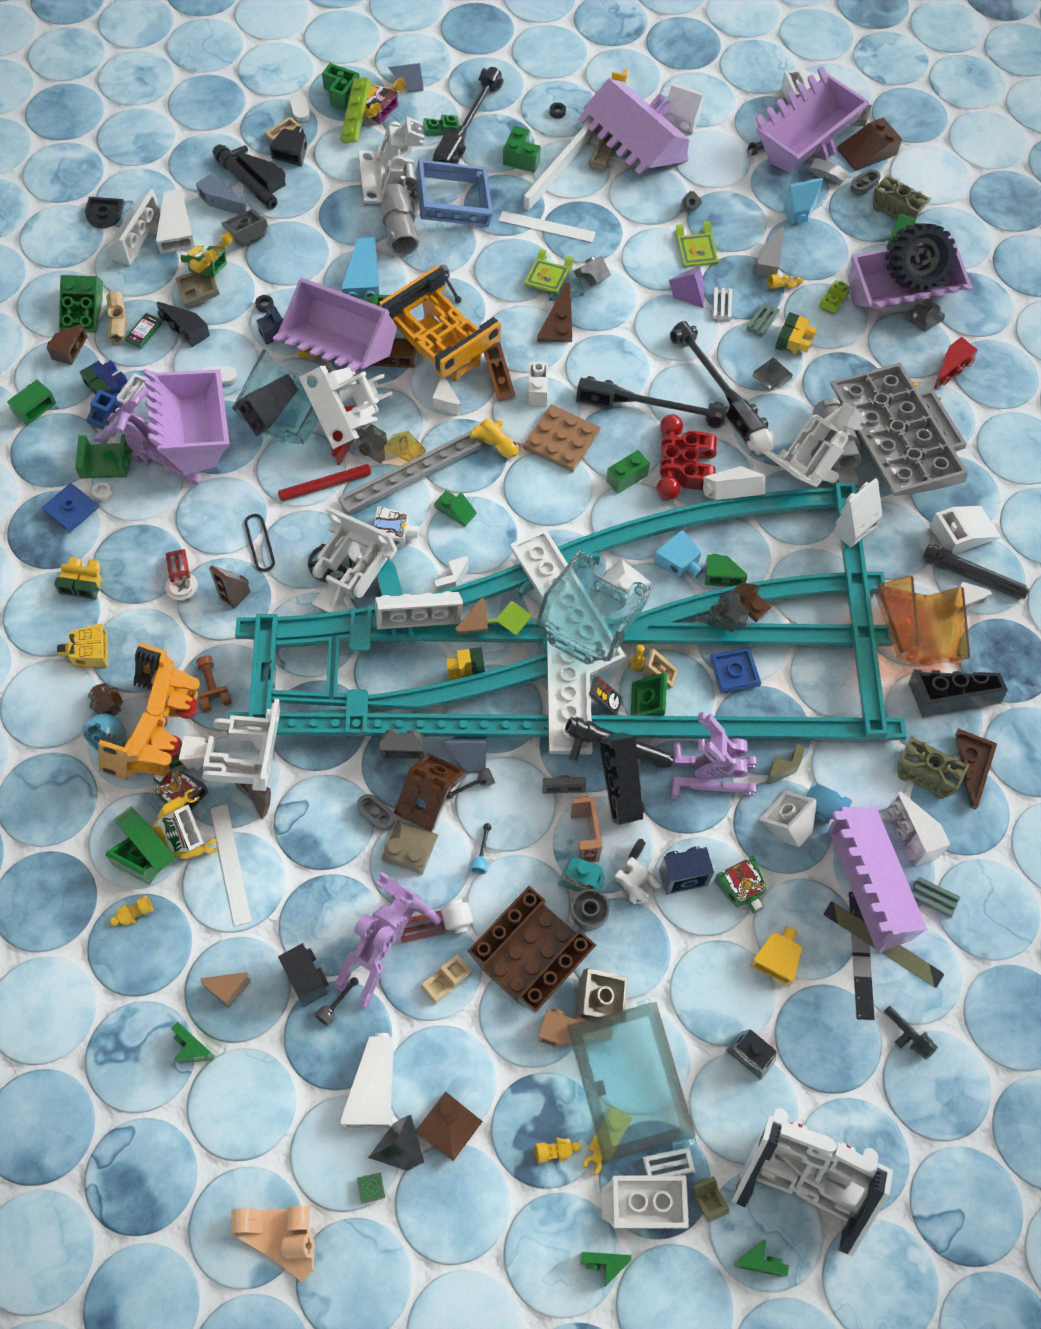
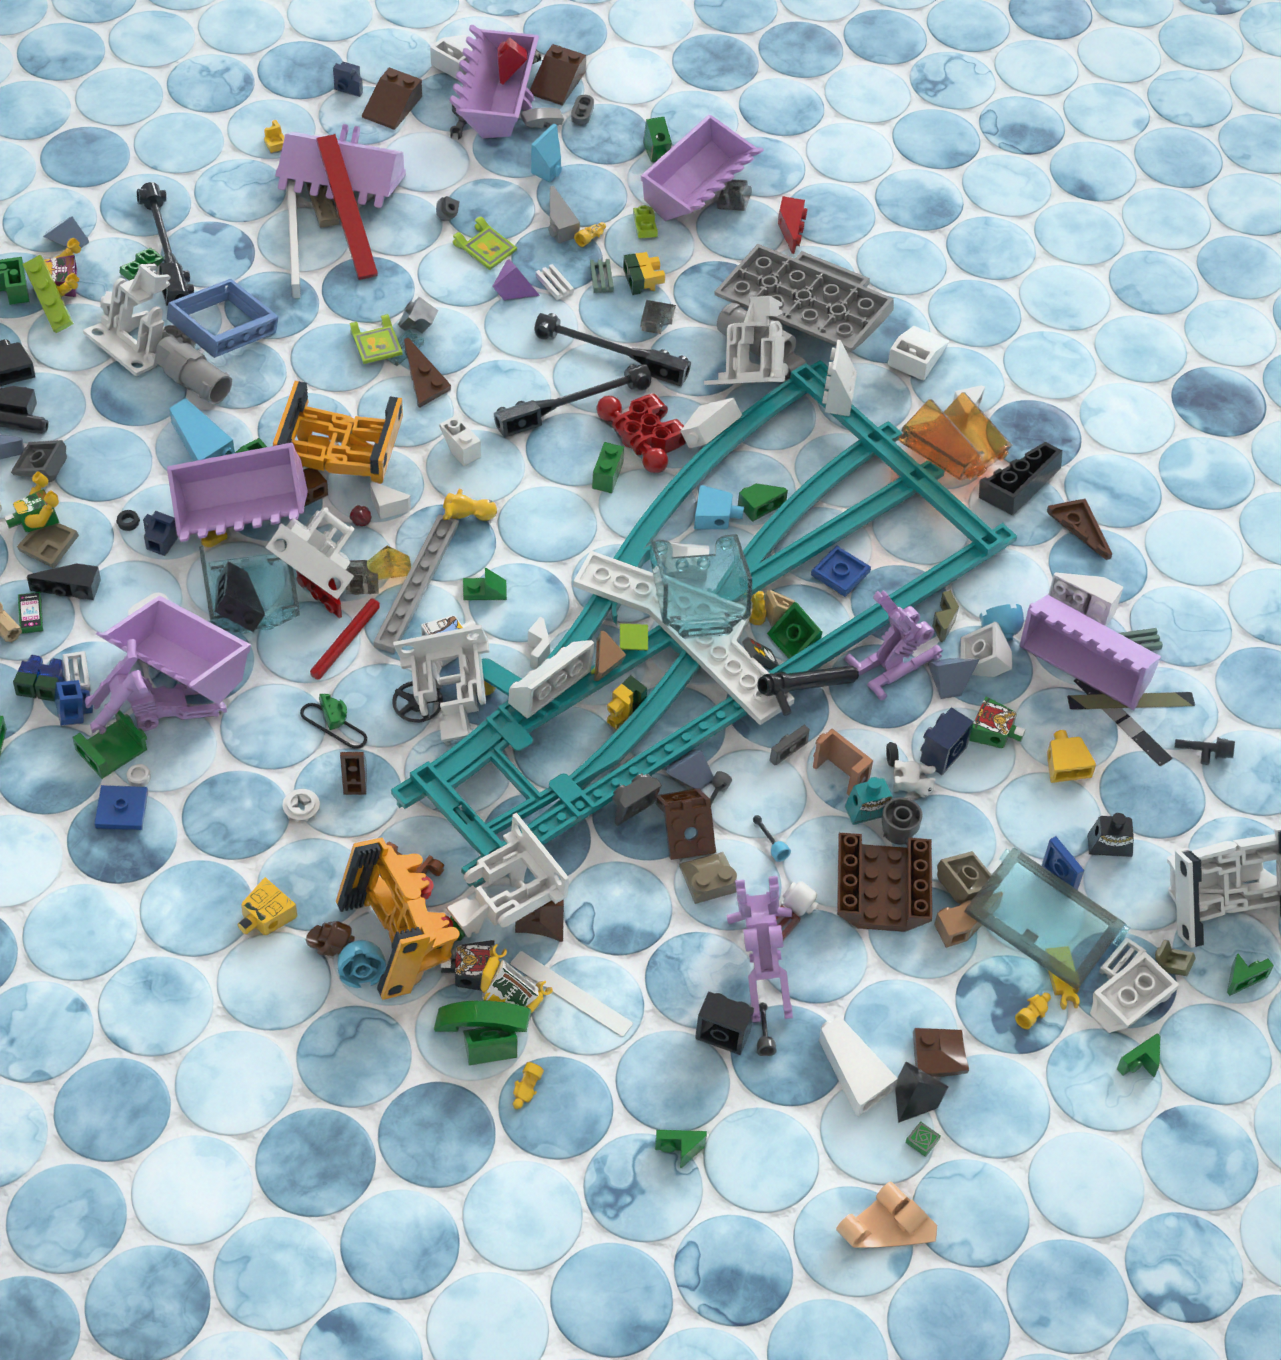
camera: 40 degrees left, 10 degrees down
(79, 580) = (199, 859): hips -> none
(186, 572) = (278, 791): clear red tile -> none
(227, 987) = (665, 1082): medium nougat slope -> none
(266, 532) = (334, 711): none -> green tile
(376, 813) = (657, 866): dark grey plate -> none
(417, 397) = (360, 515): none -> dark red plate
(446, 979) = (834, 952): tan slope -> none
(458, 299) = (277, 396): black hinge -> none
(499, 372) = (417, 452): dark orange slope -> none
(520, 152) = (246, 249): green brick -> none
(547, 226) = (331, 302): white sticker -> none
(557, 105) = (241, 187): black piece -> none
(561, 438) = (521, 475): medium nougat plate -> none
(611, 158) = (347, 207): none -> red tile
(622, 777) = (836, 699): black wedge -> none
(684, 108) = (371, 124): white slope -> none
(684, 1047) = (1062, 863): none -> blue plate
(707, 65) = (347, 78): none -> dark blue brick
(729, 97) = (393, 98): none -> reddish brown slope
(729, 612) = (802, 523): clear smoke brick -> none
(747, 817) = (952, 675): none -> sand blue slope
(752, 601) = (804, 506): reddish brown slope -> none
(761, 440) = (695, 376): white head -> none
(832, 109) = (510, 58): none -> red slope
(898, 198) = (627, 109): olive piece -> none
(929, 776) = (1058, 549): olive piece -> none
(935, 259) = (711, 141): black wheel -> none
(945, 559) = (925, 383): black cylinder -> none

